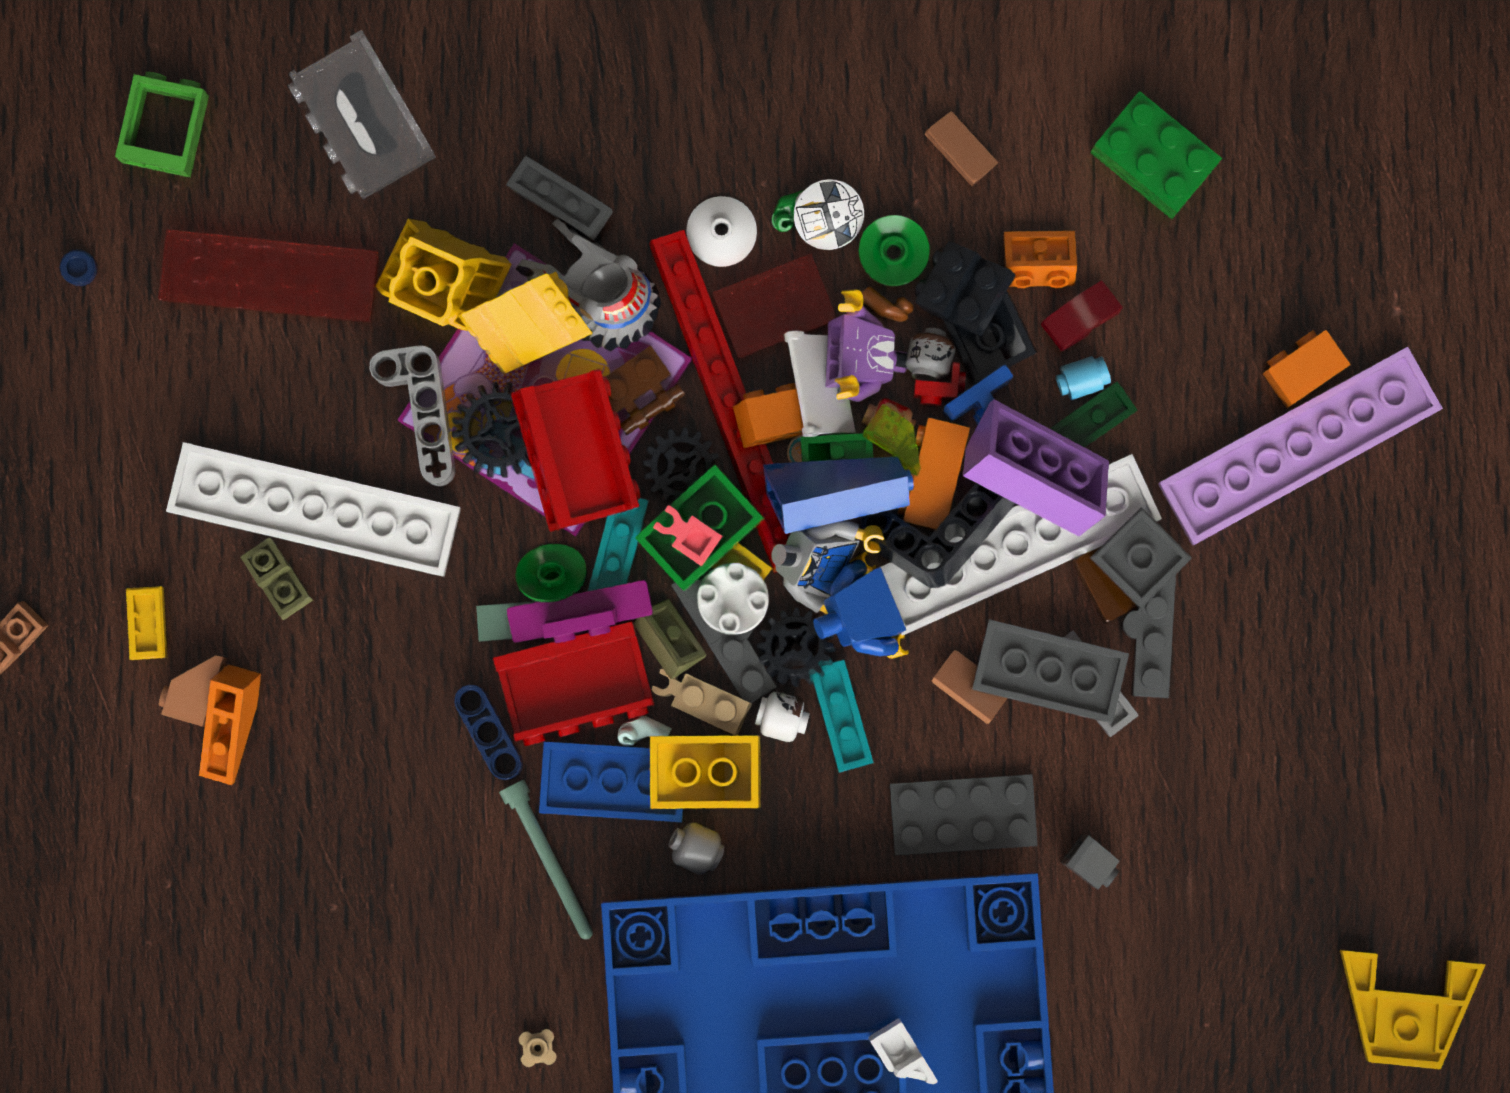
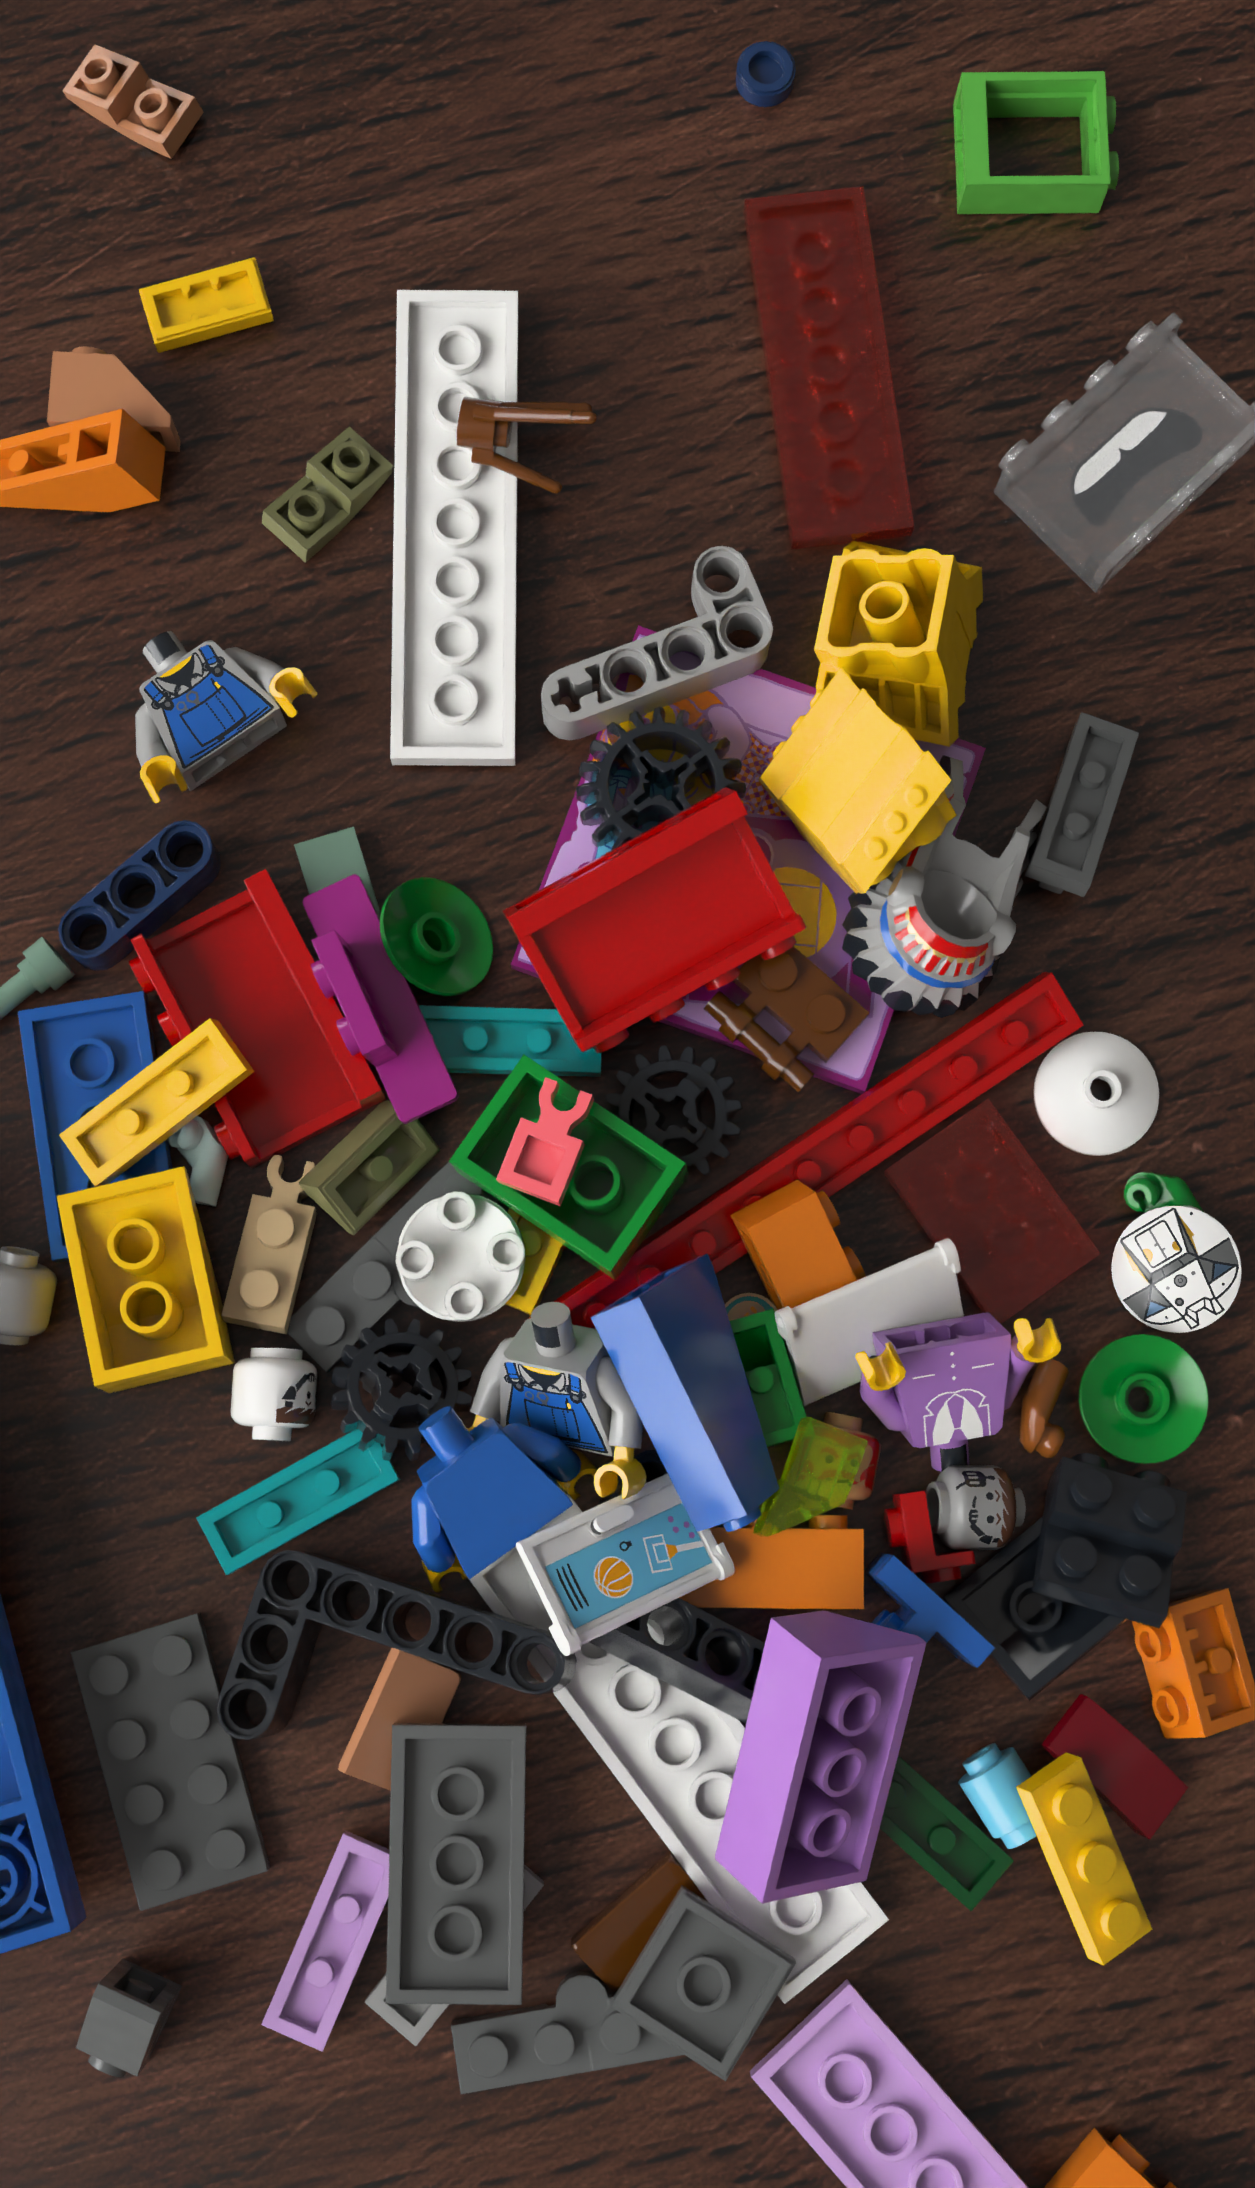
camera: 70 degrees right, 5 degrees down
(263, 476) = (489, 423): none -> reddish brown plant
(390, 672) = (207, 710): none -> torso
(611, 743) = (156, 1103): none -> yellow plate
(918, 683) = (383, 1623): none -> black beam
(919, 540) = (633, 1567): none -> door
(1076, 747) = (331, 1943): none -> lavender plate
(1124, 344) = (1084, 1858): none -> yellow plate

